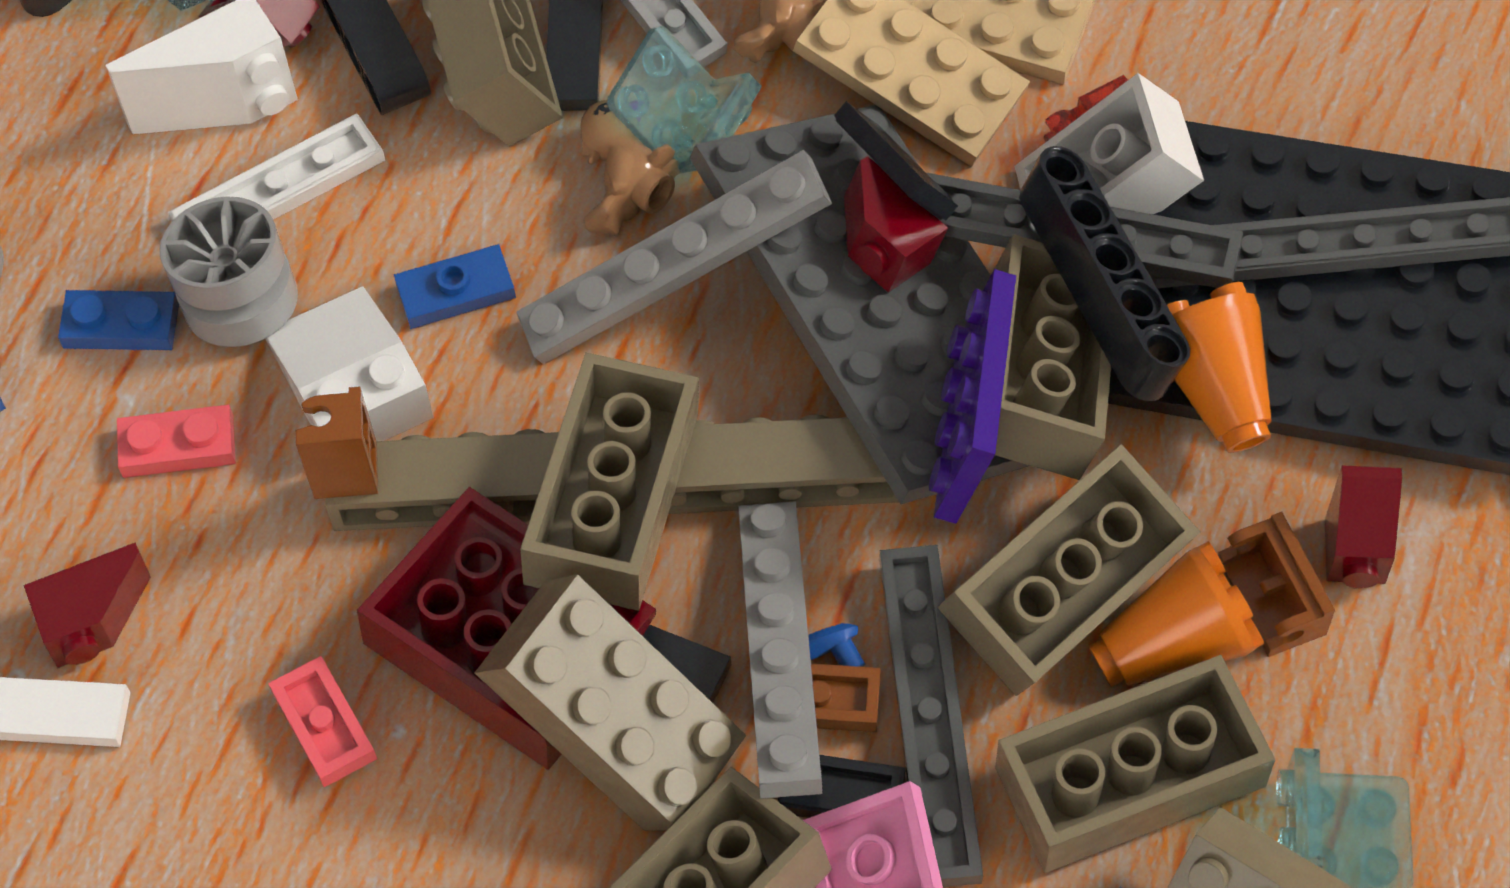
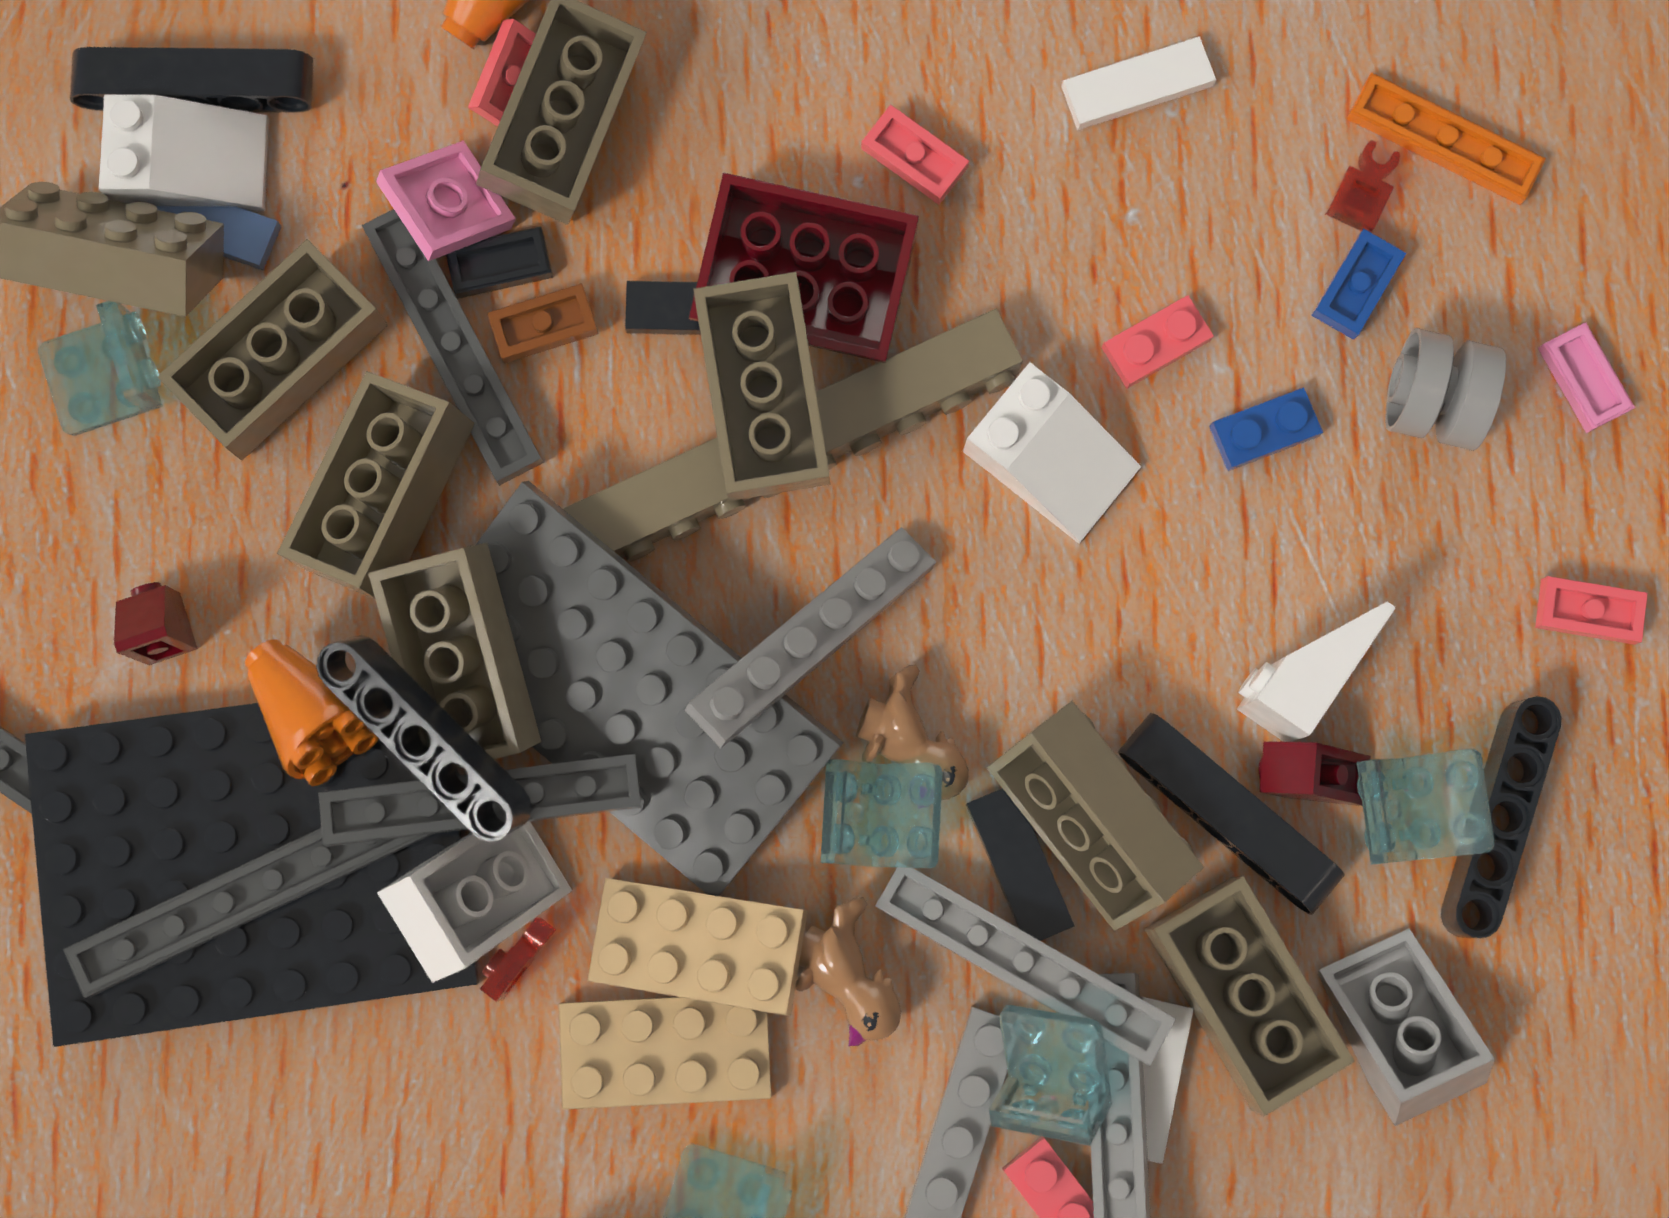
camera: 150 degrees right, 20 degrees up
(87, 604) = (1145, 166): dark red slope -> none
(229, 271) = (1188, 482): light grey wheel -> none
(302, 170) = (1204, 610): white tile -> none
(343, 452) = (989, 324): dark orange hinge -> none
(454, 286) = (1002, 572): blue plate -> none
(610, 703) = (684, 209): brick -> none
(779, 651) = (582, 331): light grey plate -> none
(838, 641) = (564, 367): blue bar -> none
(887, 229) = (637, 726): dark red slope -> none
(895, 162) = (653, 793): black tile -> none
(973, 395) = (488, 566): dark purple plate -> none
(1178, 623) = (270, 483): orange cone -> none
(1277, 584) = (213, 558): dark orange hinge -> none

